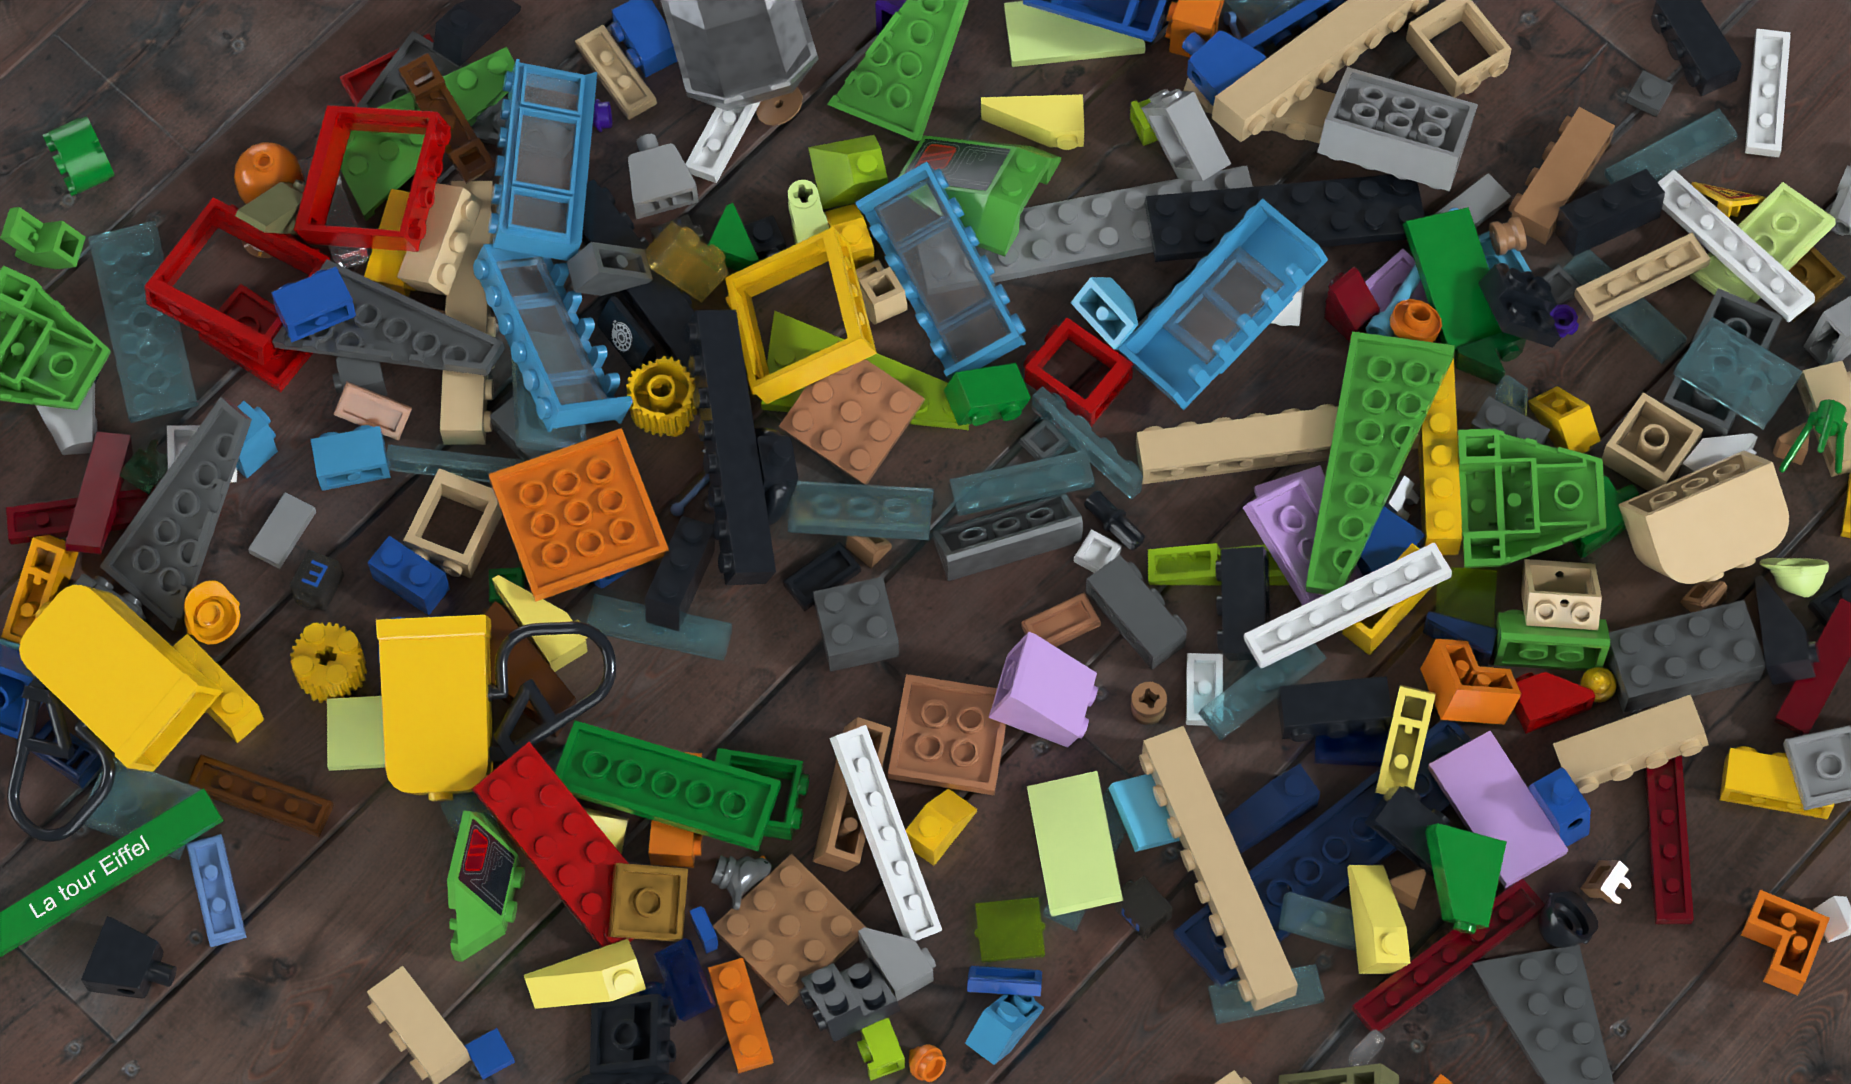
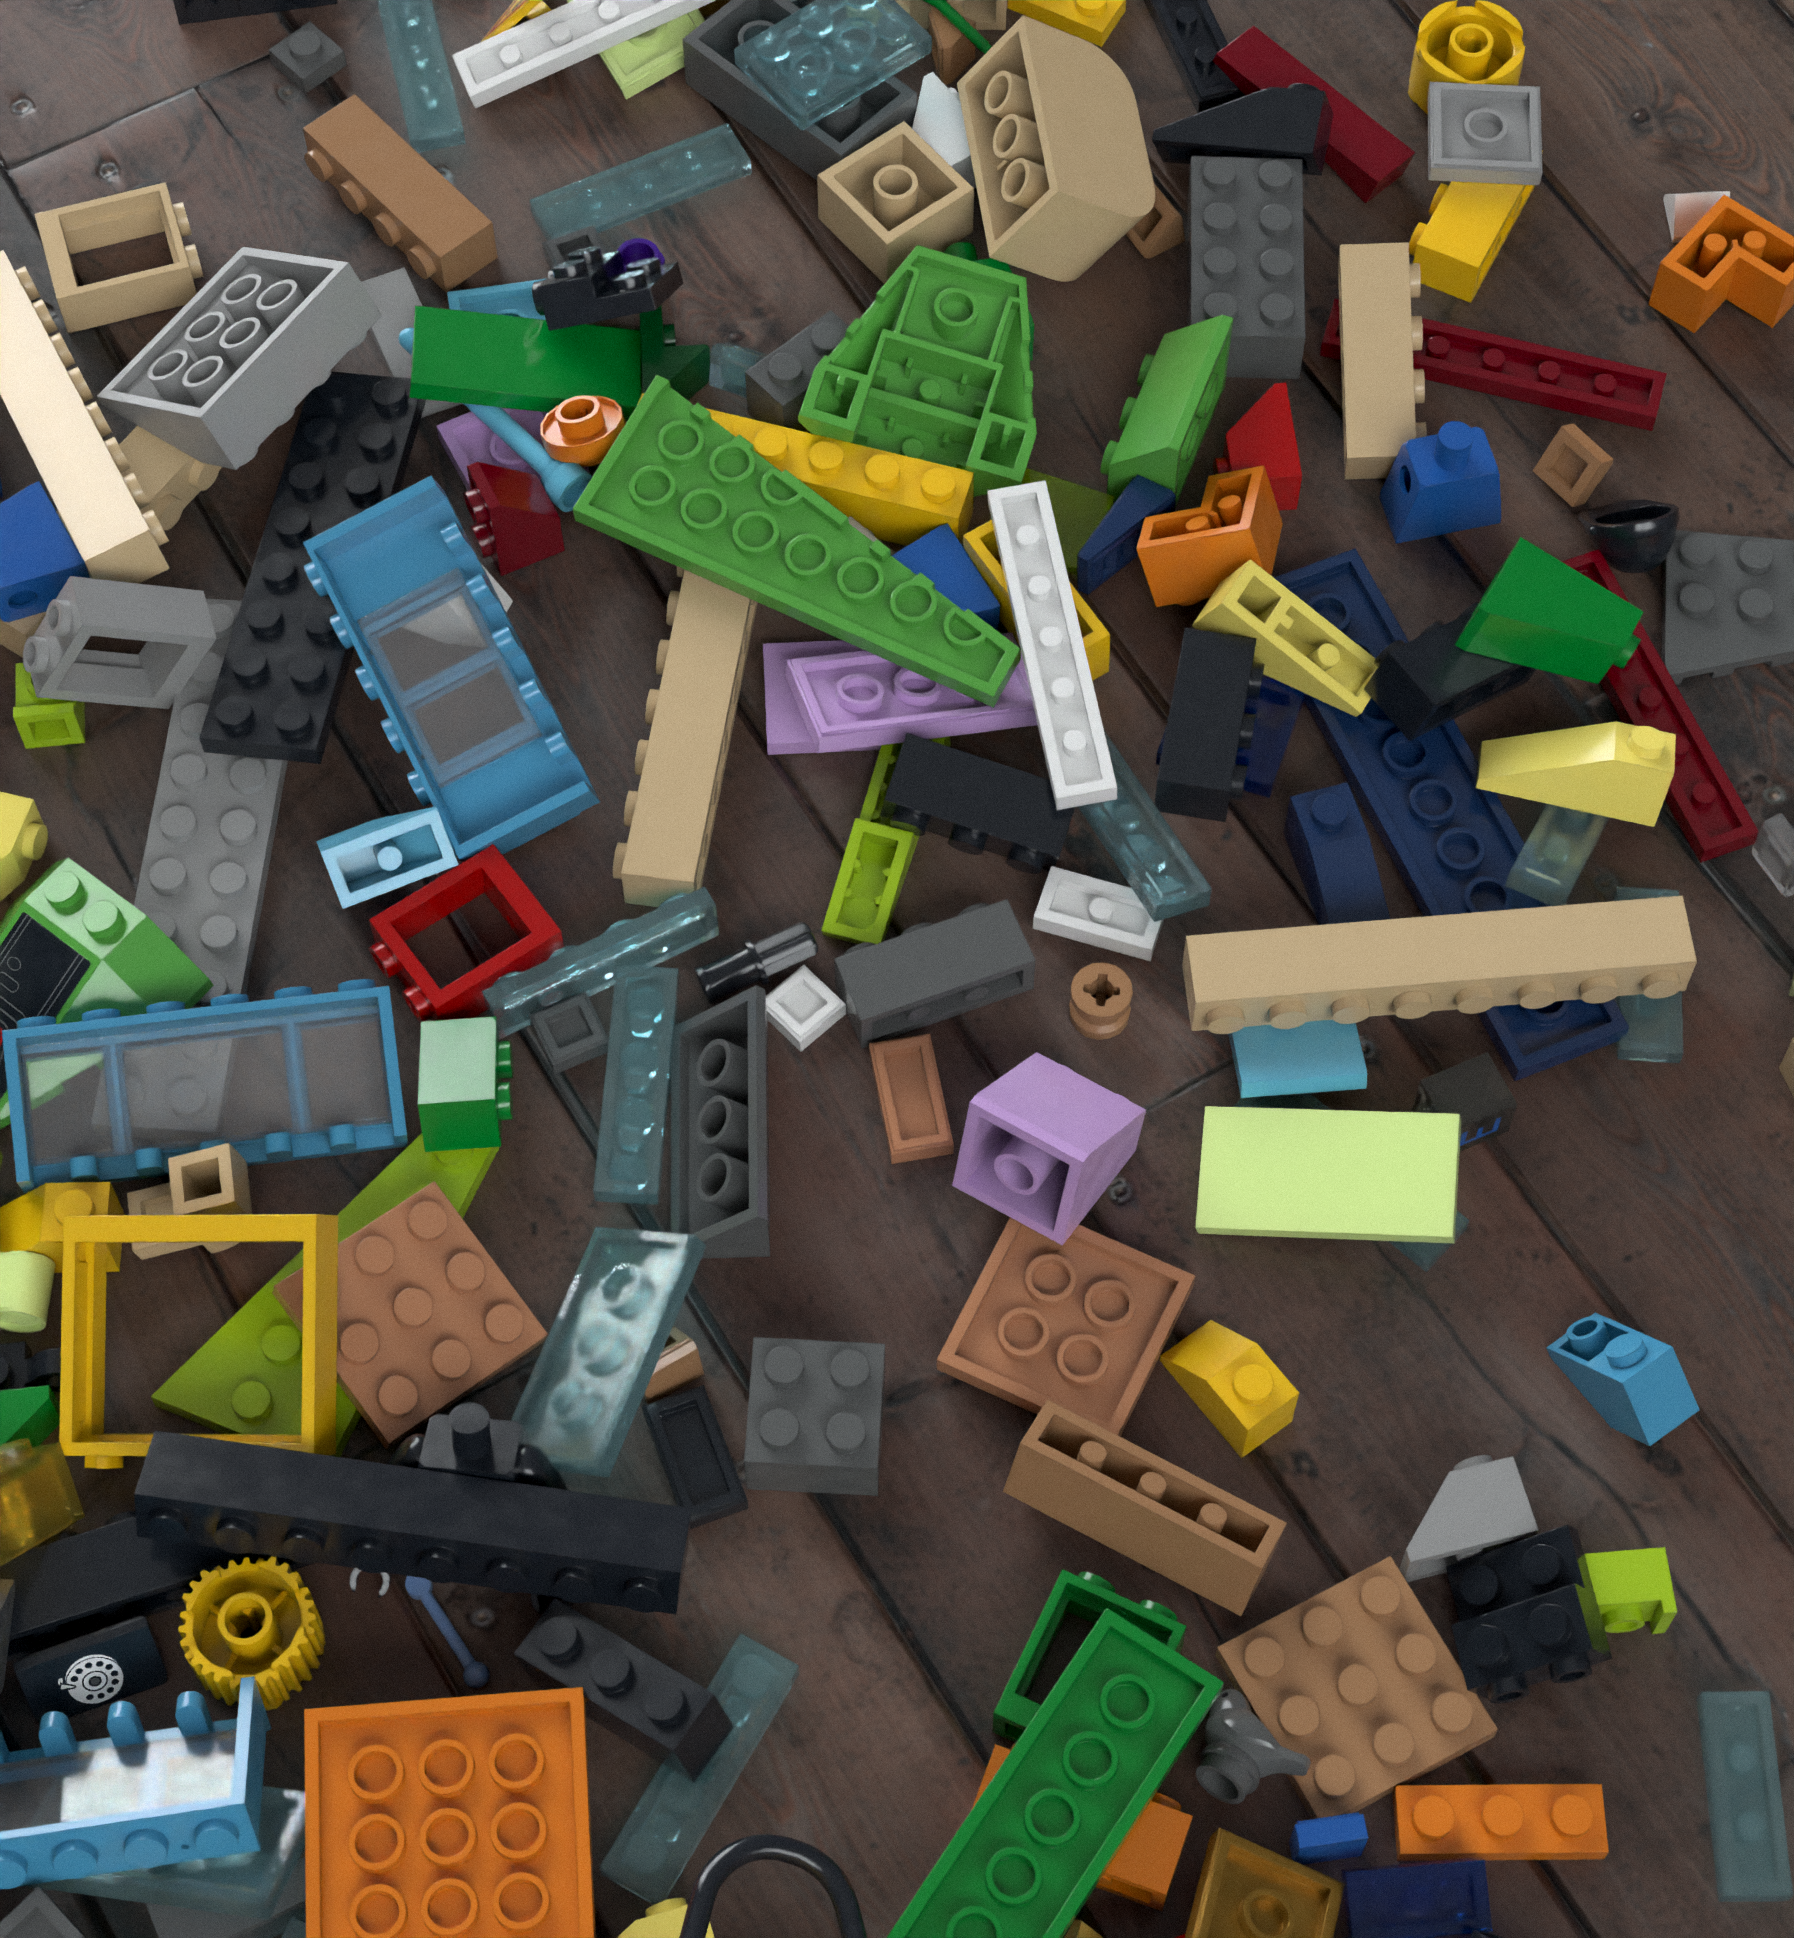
camera: 75 degrees left, 5 degrees down
(885, 833) = (1244, 1460): white plate -> none
(926, 1062) = (1660, 1523): orange plate -> none
(1004, 981) = (1545, 1355): blue tile -> none
(1010, 929) = (1442, 1329): clear neon green piece -> none
(1408, 887) = (1525, 711): medium nougat slope -> none
(1498, 805) = (1417, 559): lavender tile -> none
(1507, 236) = (479, 278): medium nougat wheel -> none
(1544, 591) = (1142, 338): tan window -> none
(1567, 418) = (804, 293): yellow slope -> none
(1601, 682) = (1247, 384): yellow plate -> none
(1609, 212) = (492, 144): black brick -> none
(1642, 277) = (616, 138): tan plate -> none
(1797, 575) = (1163, 89): yellowish green hat -> none

